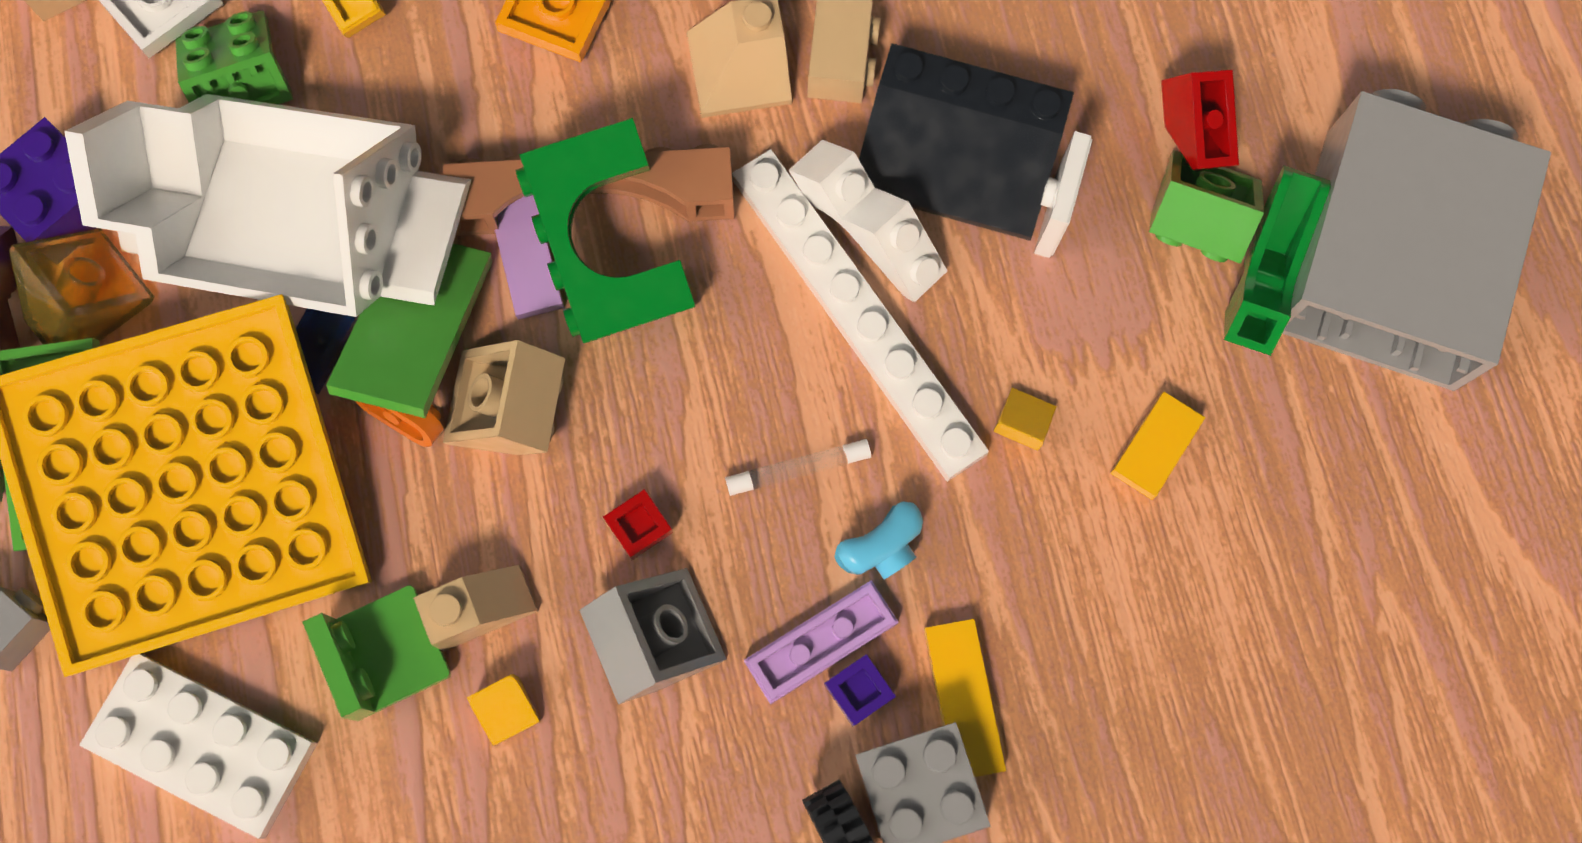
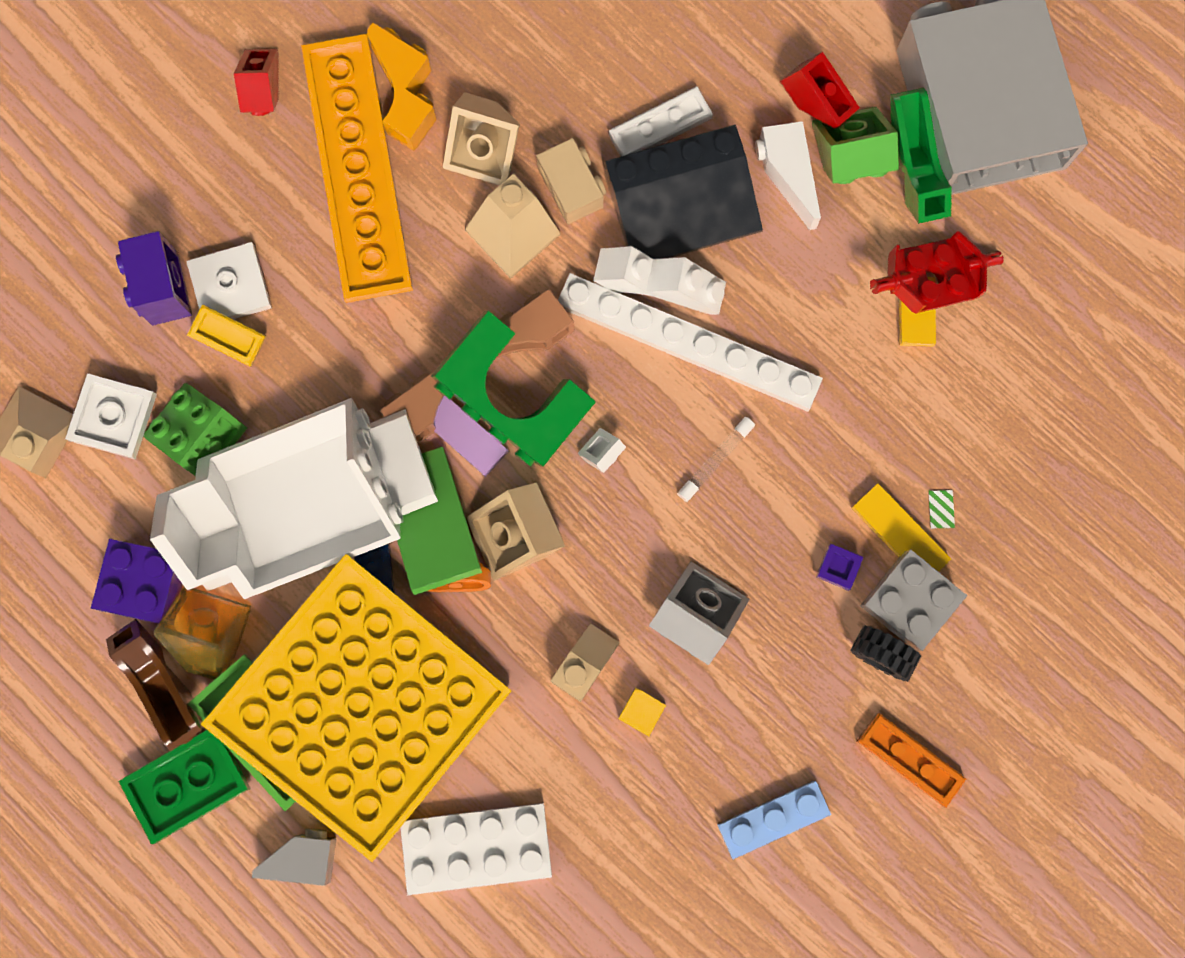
camera: 30 degrees left, 5 degrees up
(376, 654) = (547, 725): bright green bracket -> none
(638, 524) = (646, 554): red plate -> none
(668, 371) = (601, 450): none -> white plate
(820, 642) = (797, 553): lavender tile -> none
(885, 545) = (799, 472): medium azure piece -> none
(997, 48) = (661, 123): none -> white tile
(1025, 419) = (830, 344): yellow slope -> none
(1035, 702) = (941, 509): none -> sticker
(1062, 193) = (769, 193): white plate -> none
(1109, 184) = (789, 168): none -> white slope
(1241, 414) = (954, 262): none -> red plate

